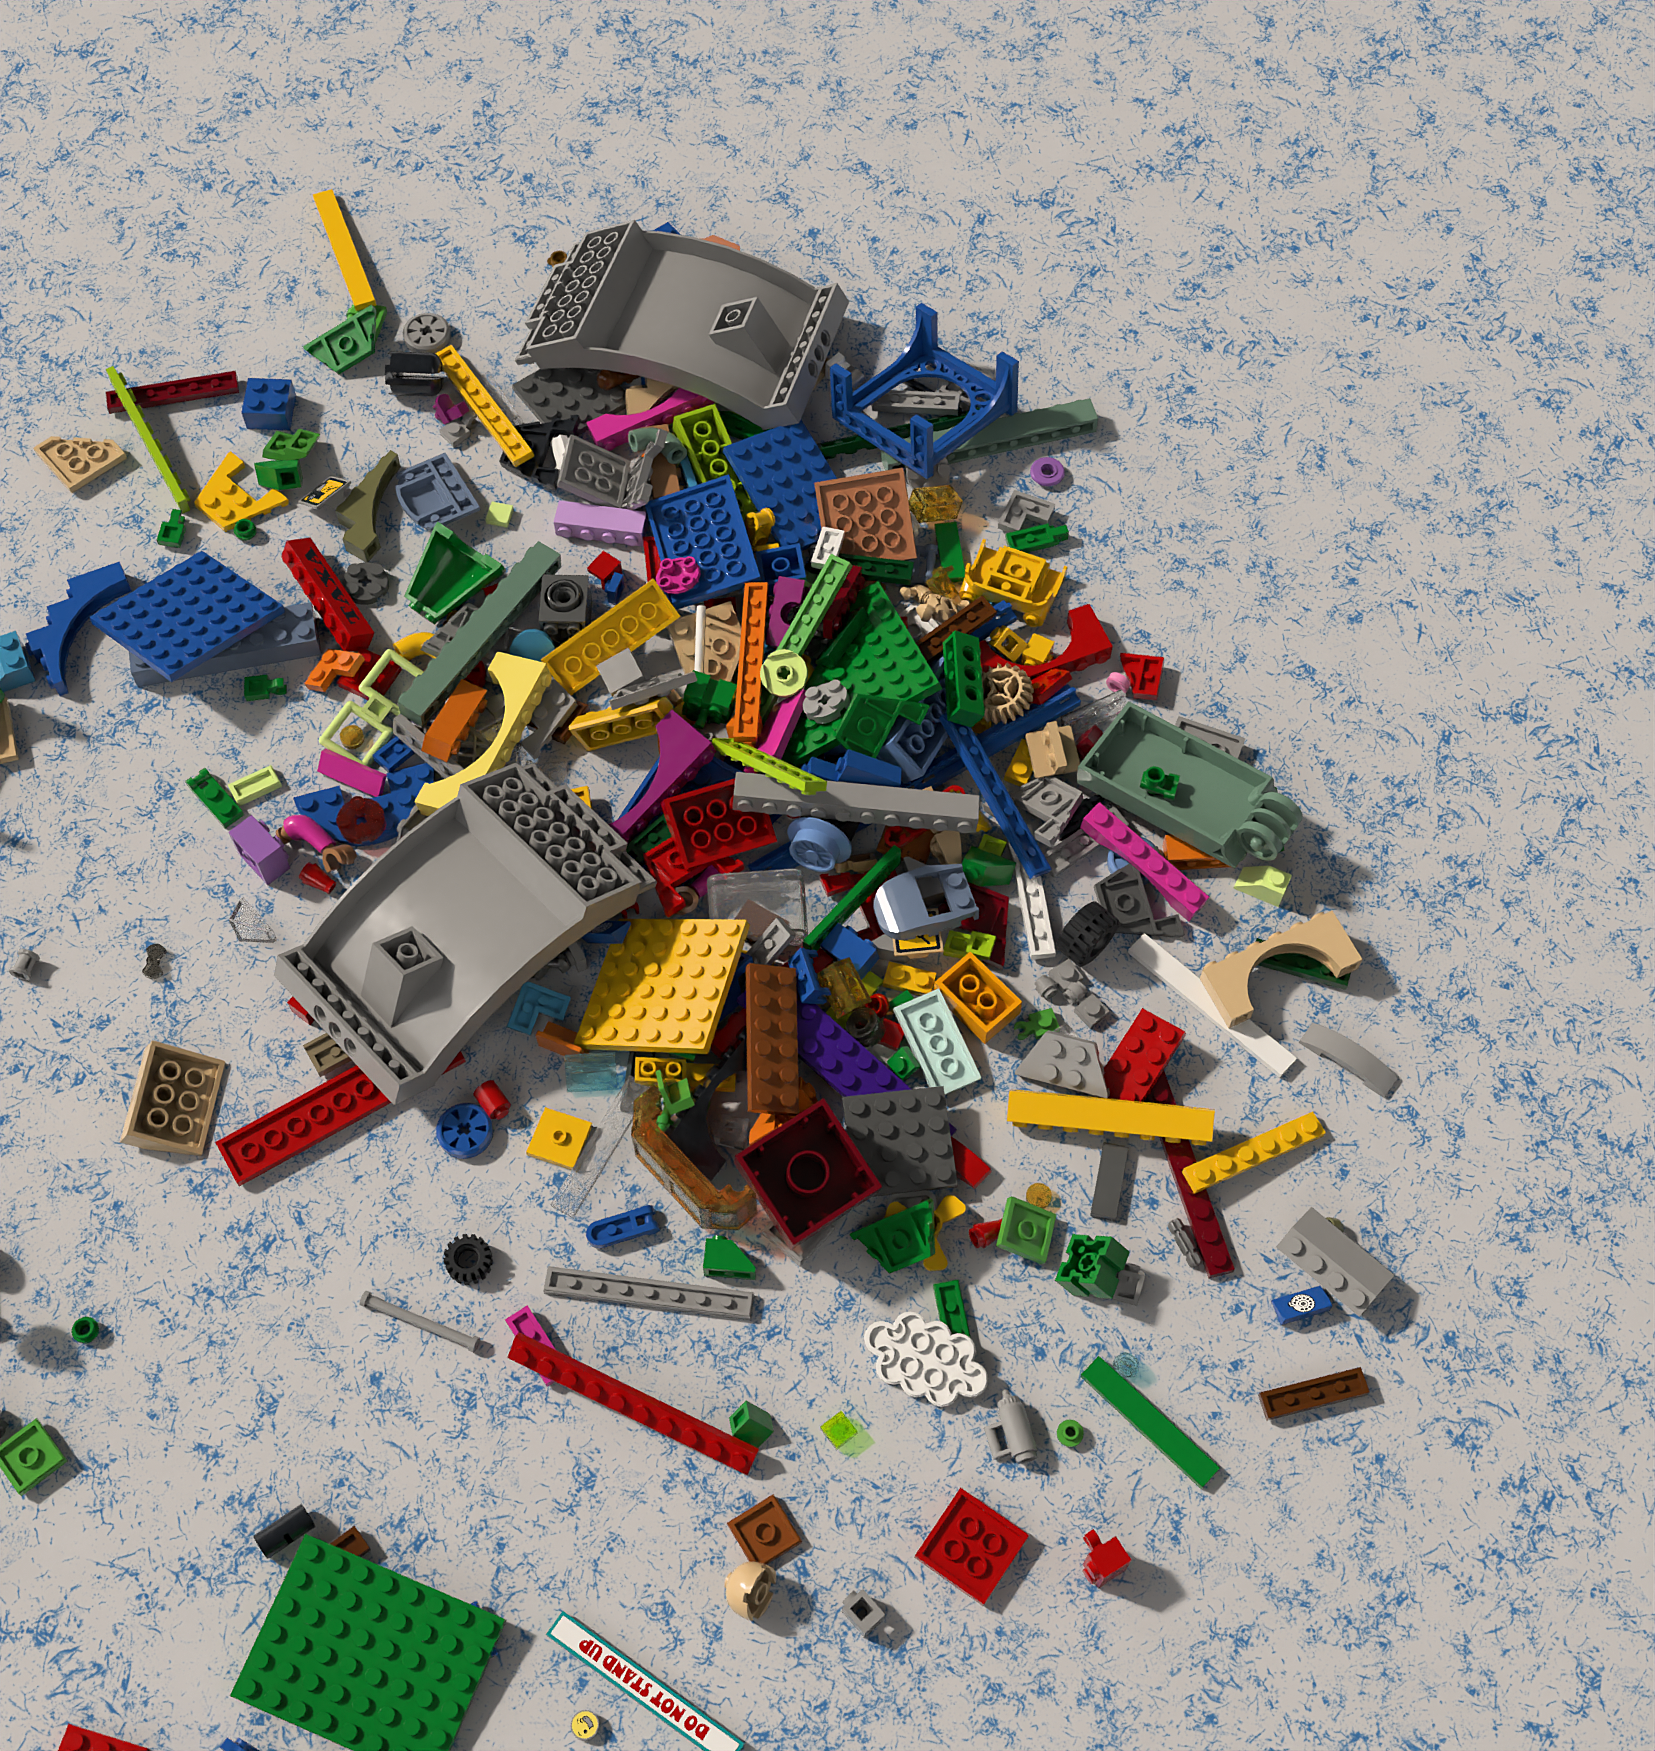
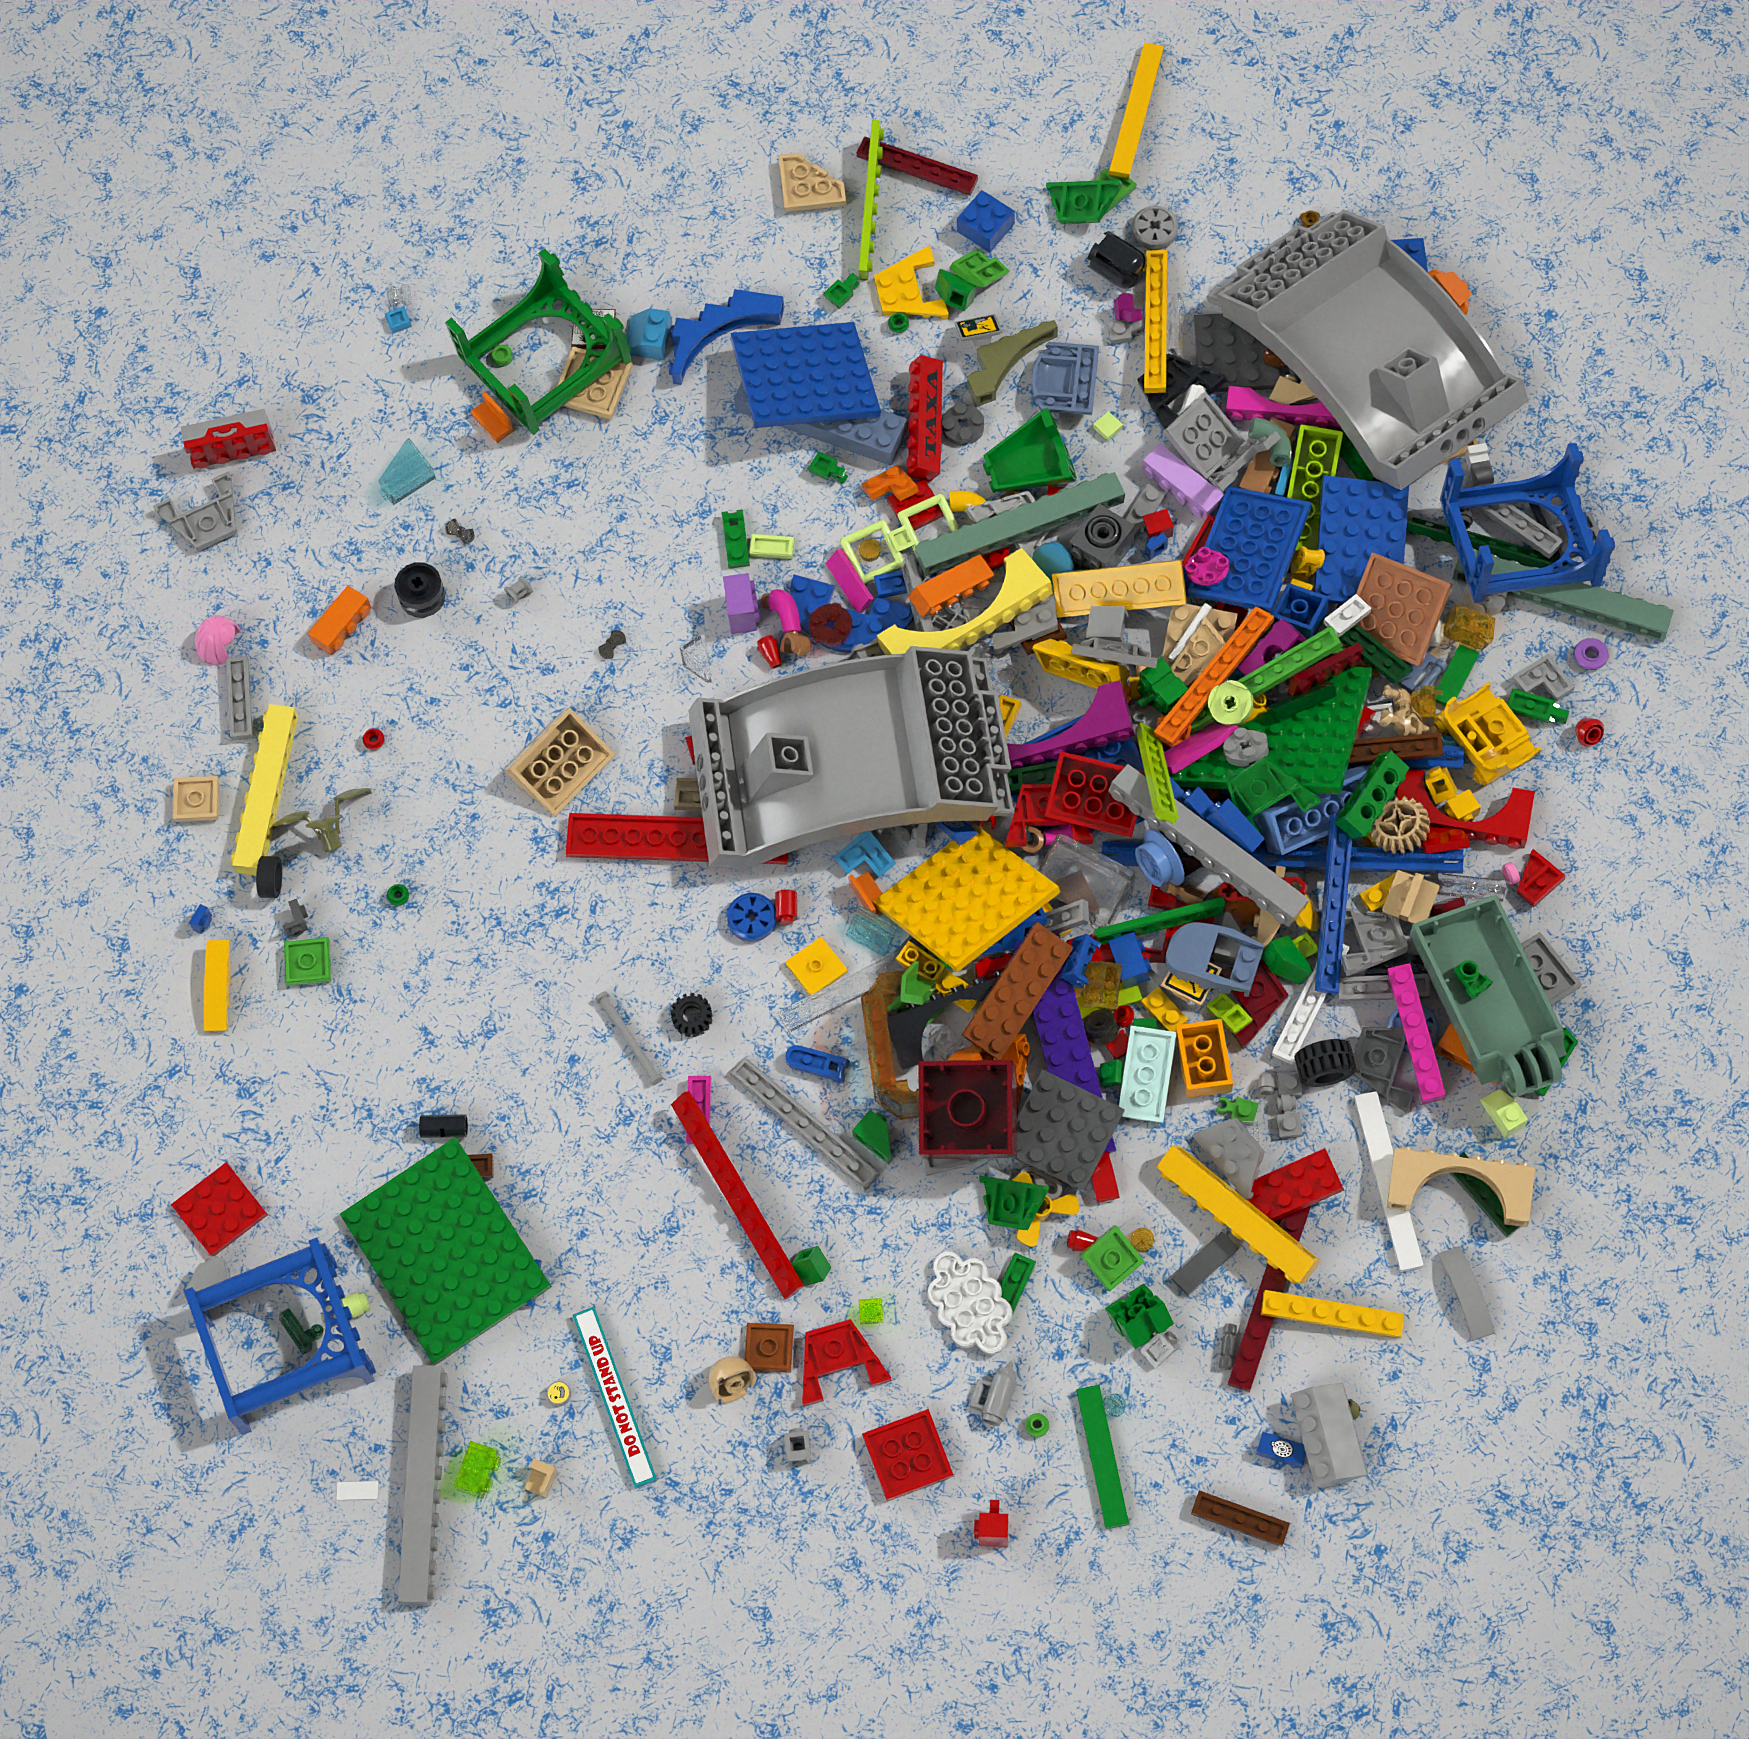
camera: 40 degrees right, 5 degrees up
(581, 557) = (1147, 503): none -> light grey hinge
(829, 1493) = (834, 1350): none -> red wing
(1093, 532) = (1589, 731): none -> red cone

